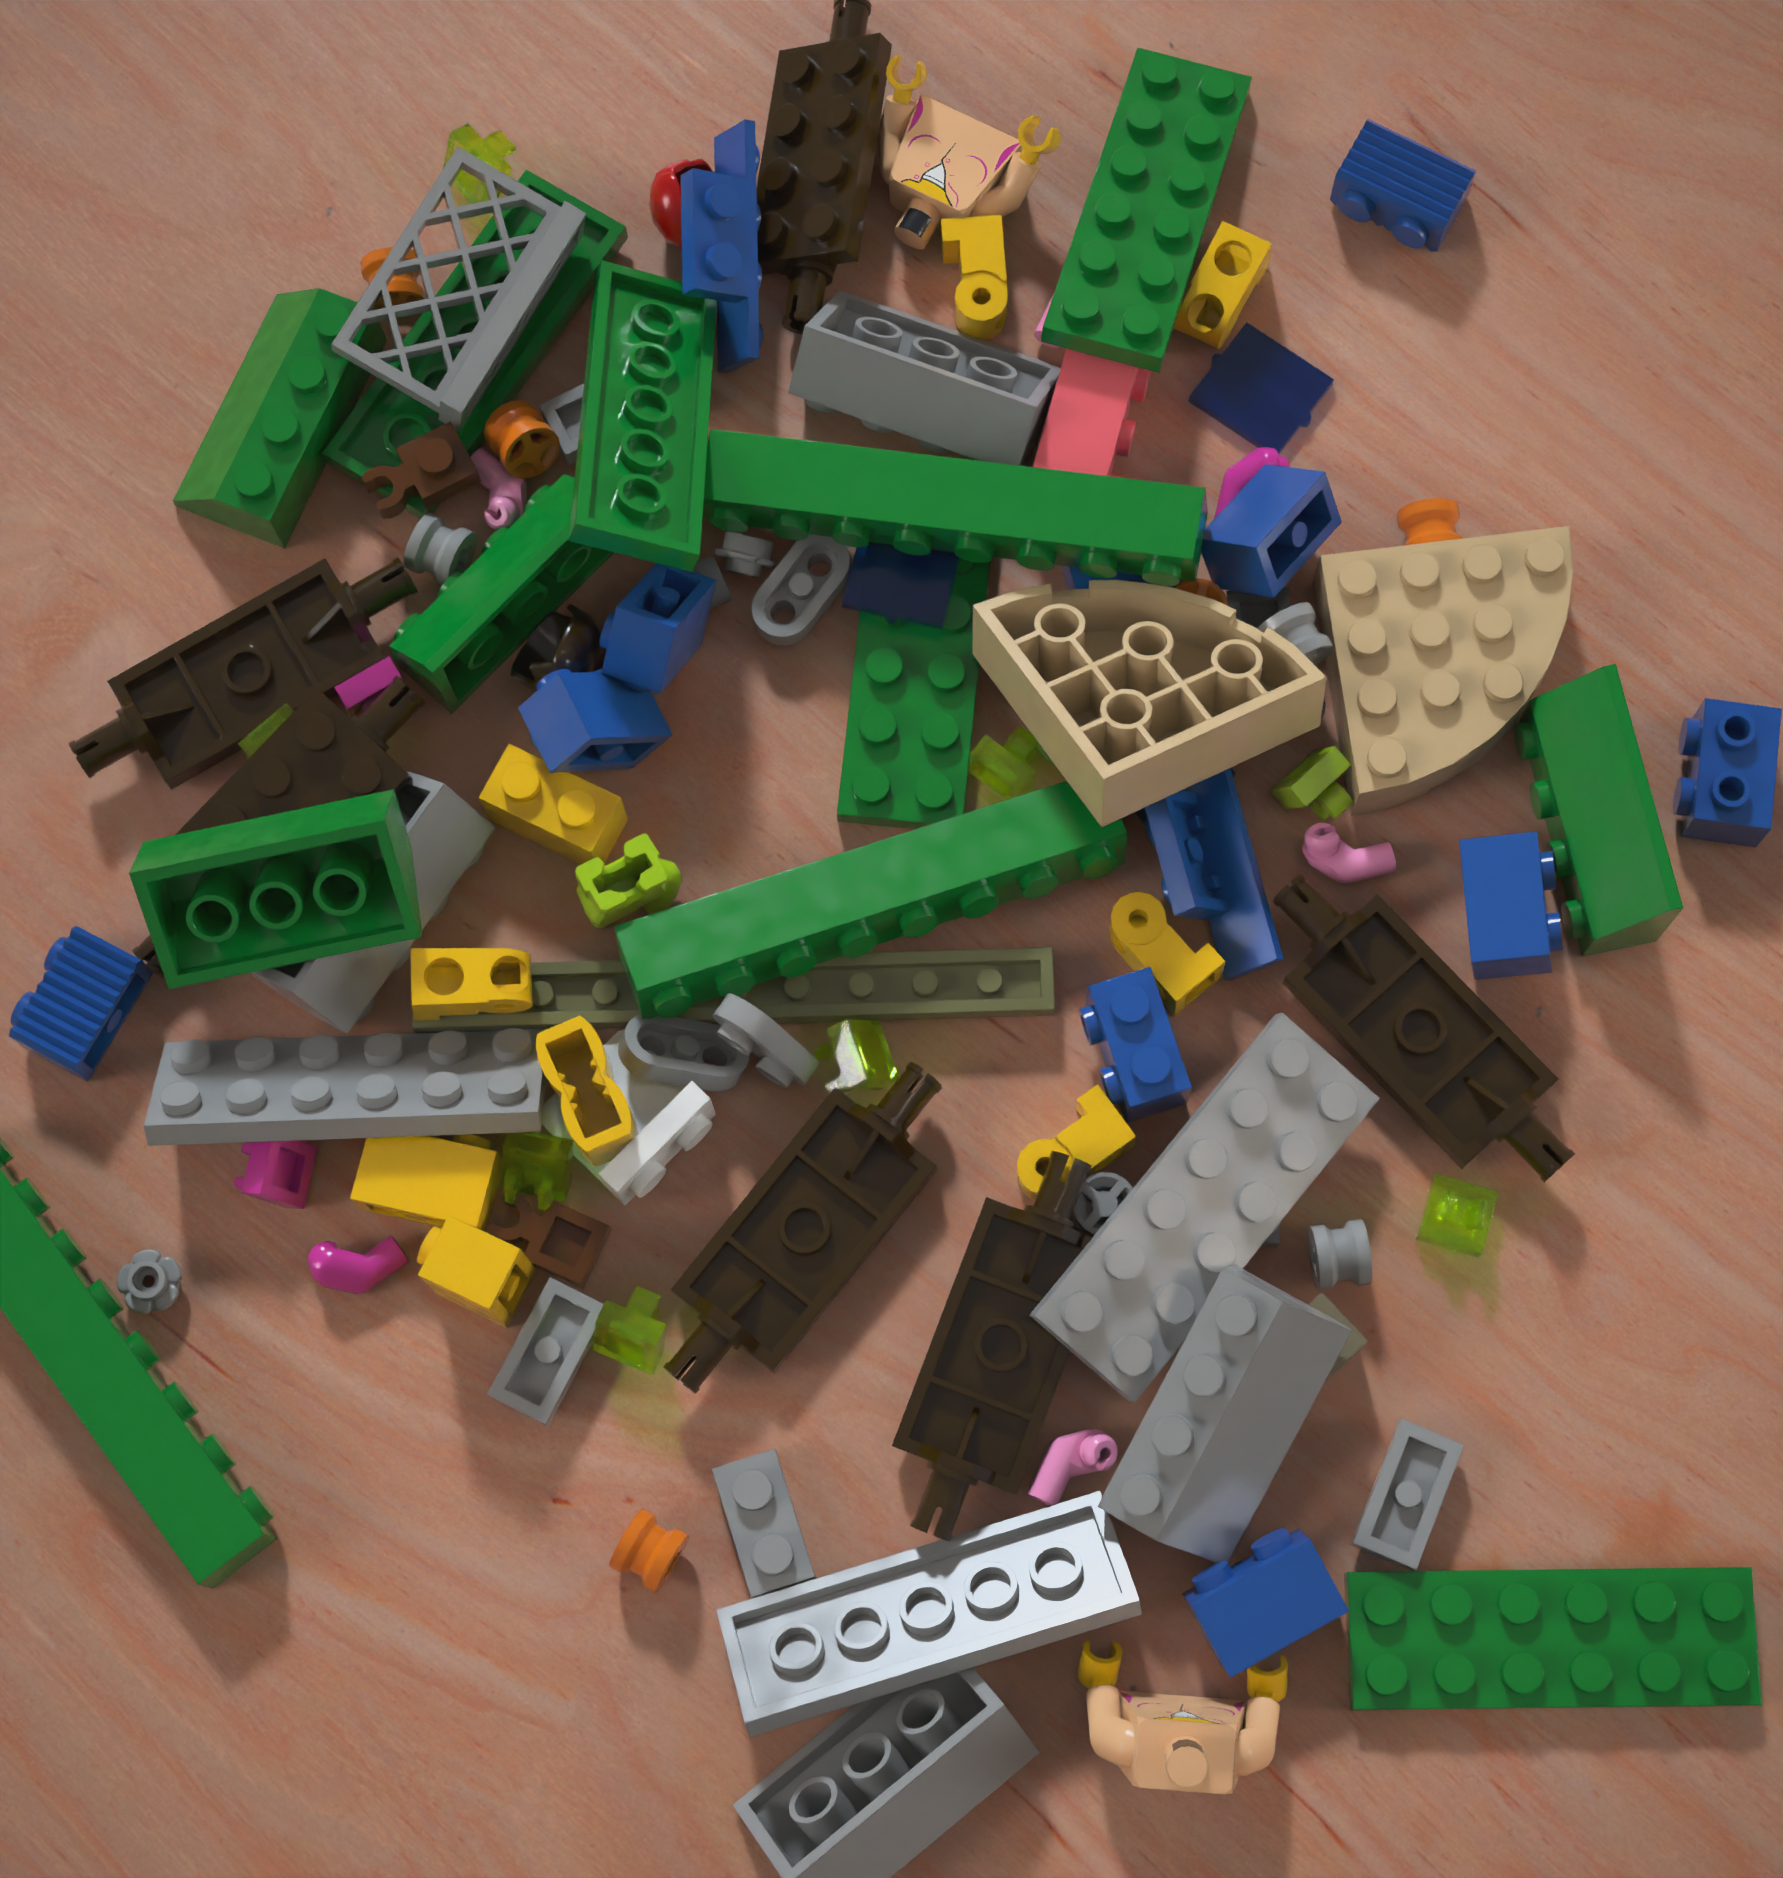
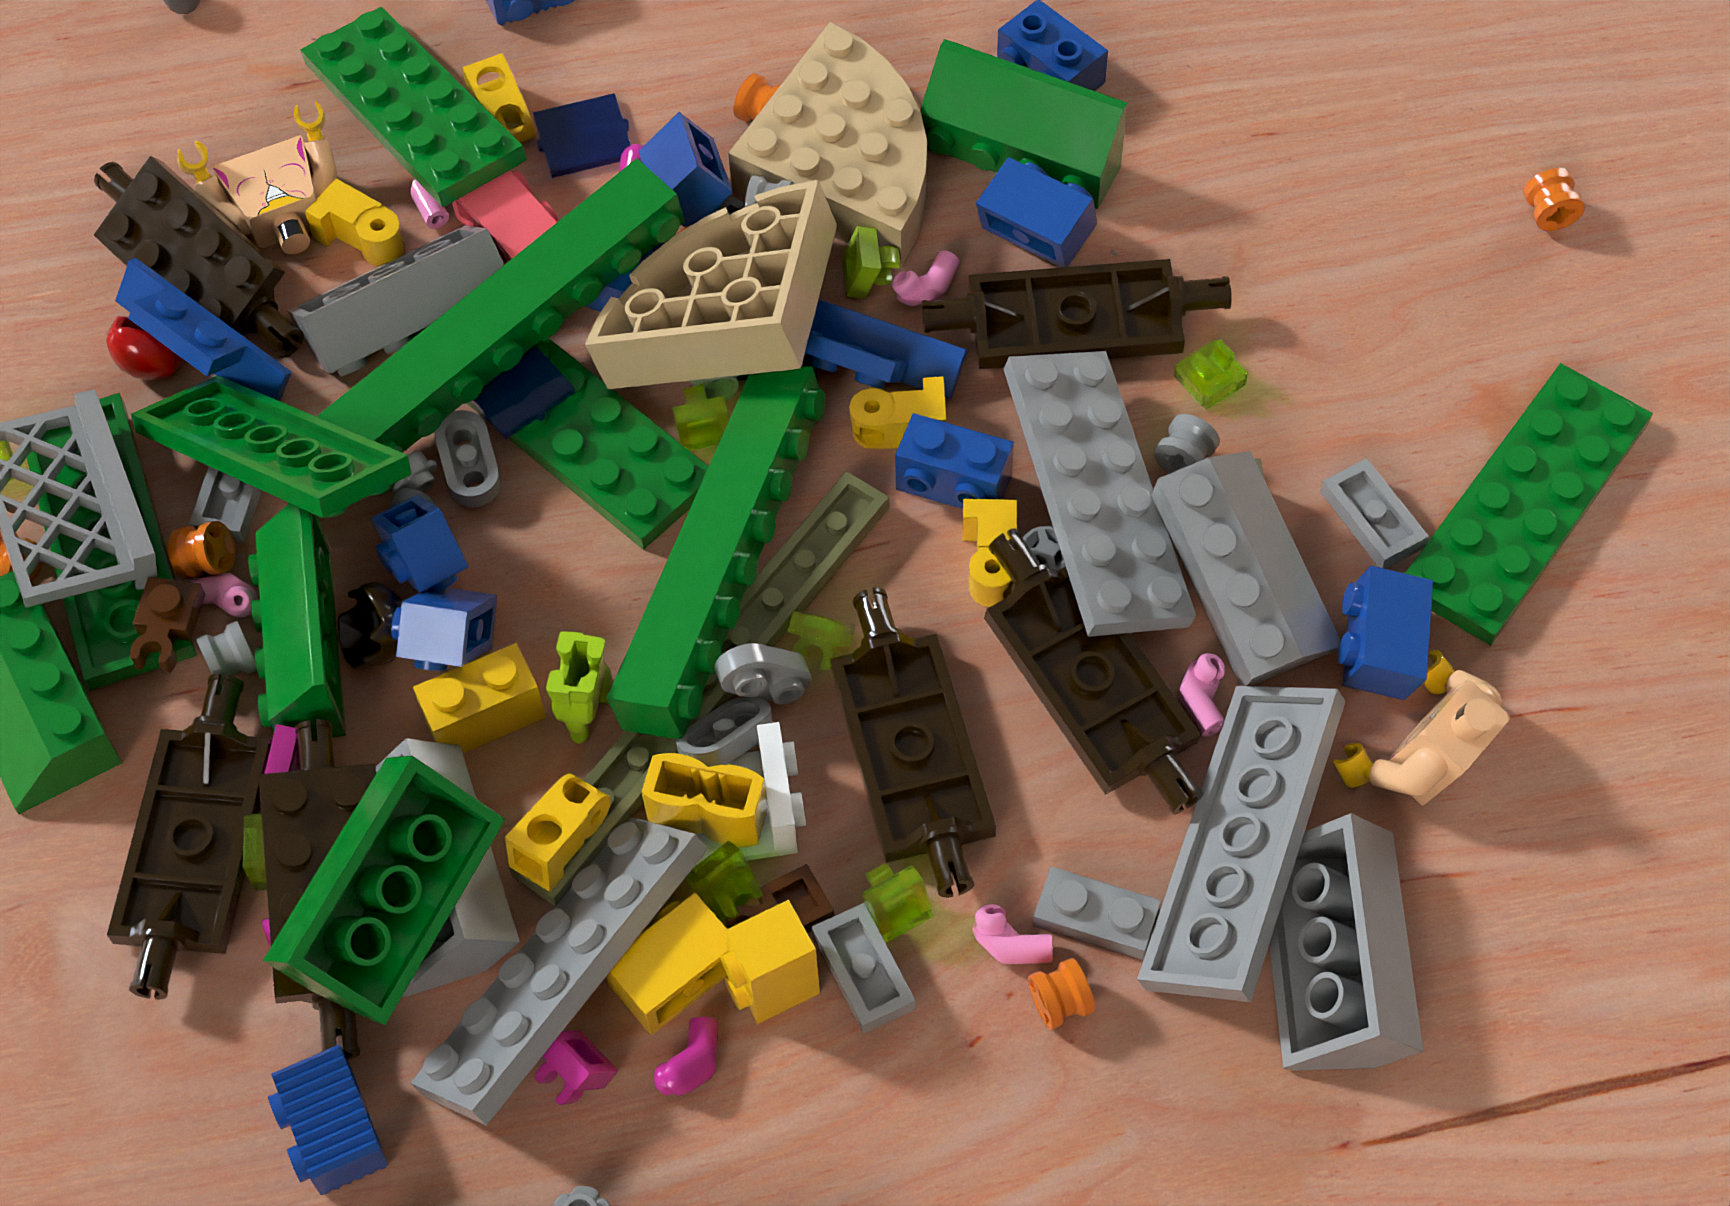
camera: 55 degrees left, 15 degrees down
(670, 1462) = (1005, 943): none -> bright pink arm

